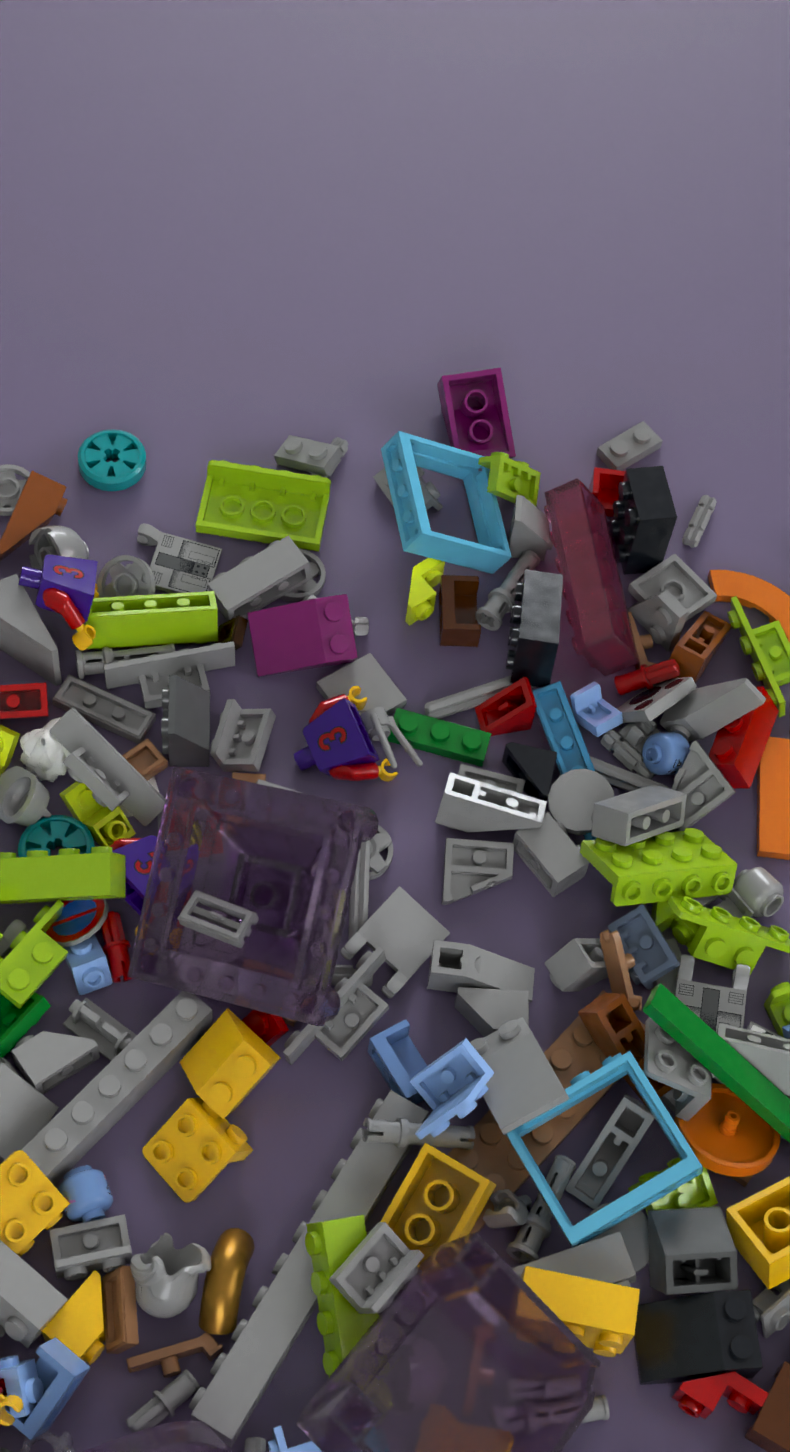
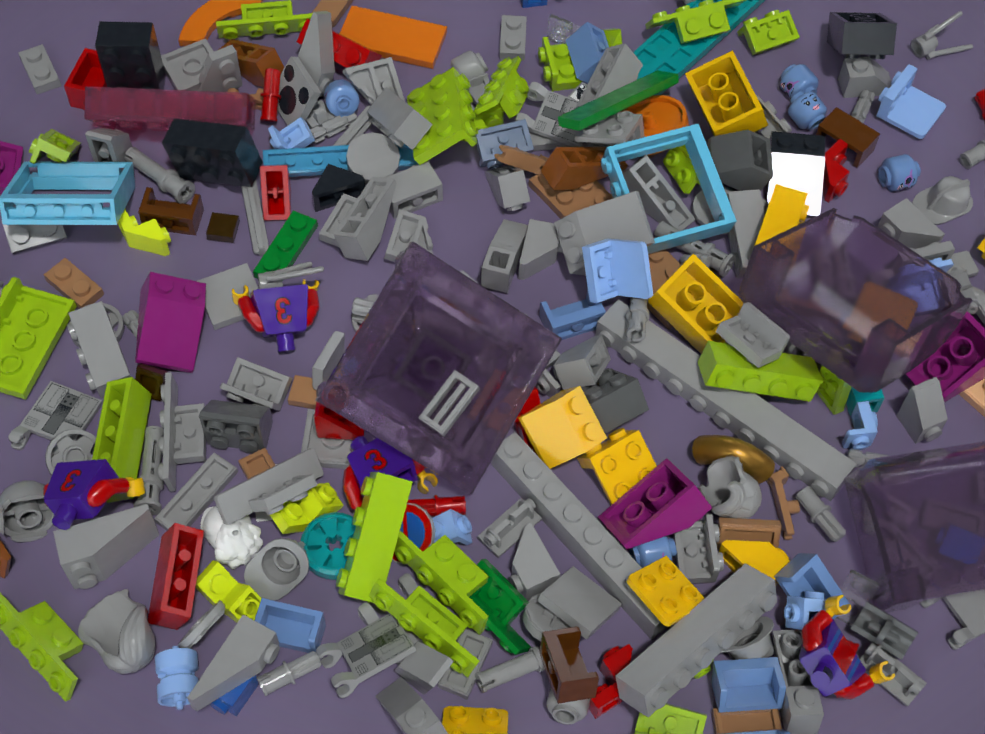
camera: 75 degrees left, 0 degrees up
(135, 1187) = (655, 507): none -> magenta slope
(284, 1118) = (615, 399): none -> dark grey slope
(331, 1083) = (582, 363): none -> light grey slope
(346, 542) = (73, 283): none -> medium nougat plate
(453, 668) = (222, 227): none -> dark brown tile

